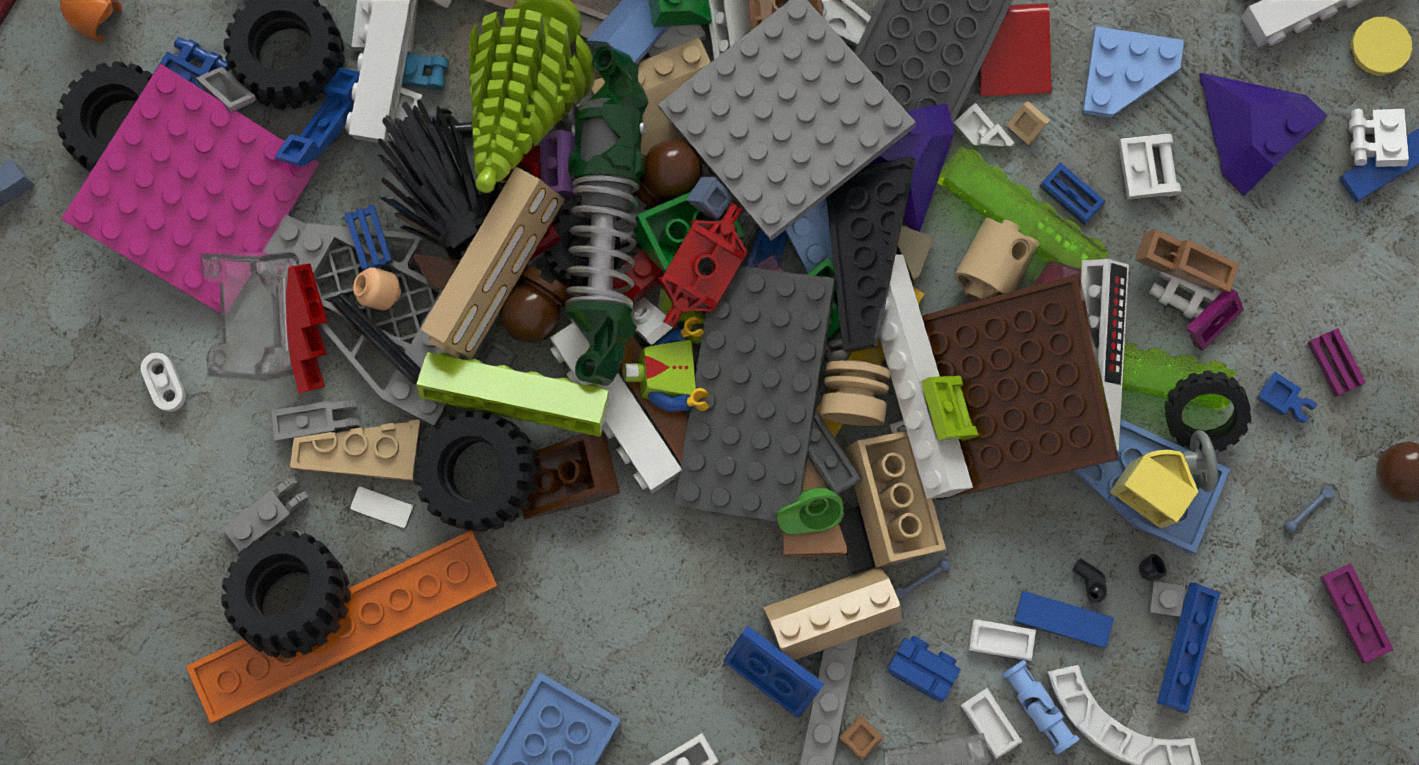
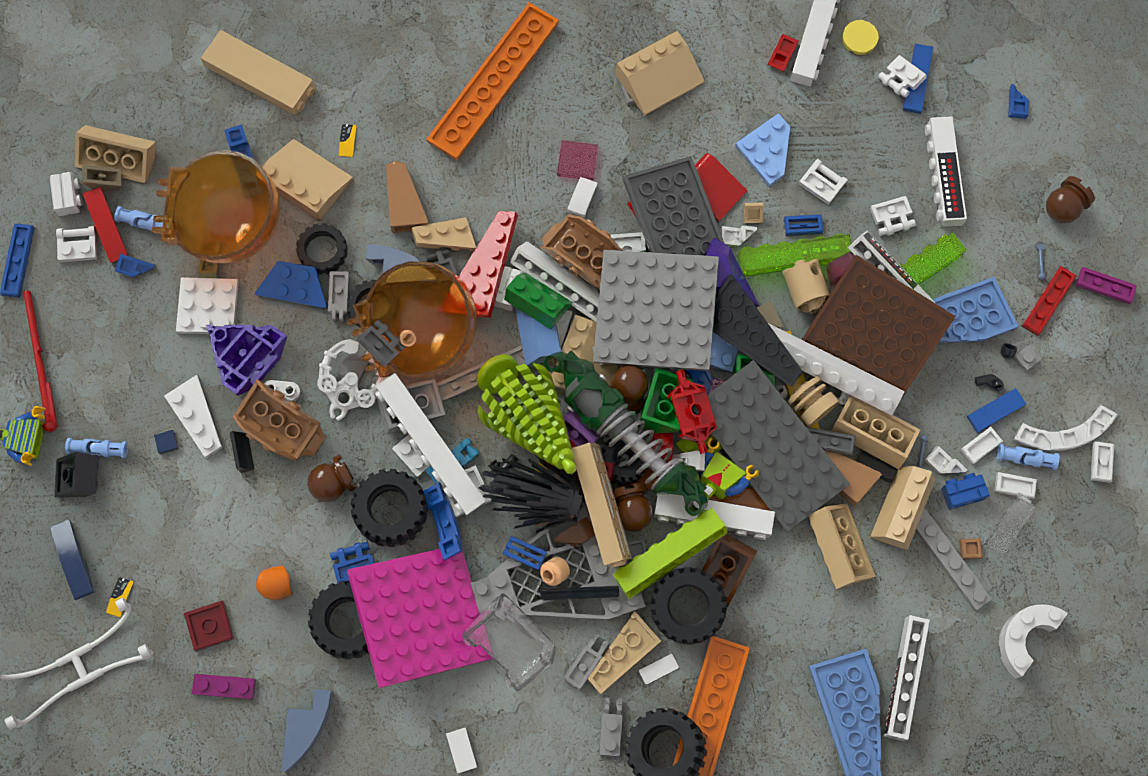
camera: 50 degrees left, 5 degrees down
(92, 376) = (461, 750): none -> white tile
(164, 383) = (498, 718): white plate -> none
(226, 89) = (384, 552): light grey slope -> none
(303, 316) = (537, 620): red slope -> none
(710, 197) = (662, 378): sand blue slope -> none
(718, 583) = (841, 545): none -> tan slope
(773, 672) = (908, 558): blue tile -> none
(812, 512) = (852, 470): bright green cap -> none
(935, 613) = (943, 463): none -> white slope
(948, 408) = (860, 367): lime plate -> none
(1162, 481) = (980, 307): light yellow piece -> none
(1186, 261) = (884, 206): medium nougat slope -> none
(1188, 648) = (1058, 369): blue tile -> none
(1208, 384) = (976, 265): black tyre -> none
(1215, 319) = (919, 217): magenta tile -> none
(1255, 126) = (847, 121): dark purple wedge -> none
(1268, 562) = (1049, 301): none -> red tile
(1282, 396) = (981, 225): blue plate -> none
(1309, 295) = (945, 172): none -> white brick
(1347, 357) = (987, 186): magenta tile -> none

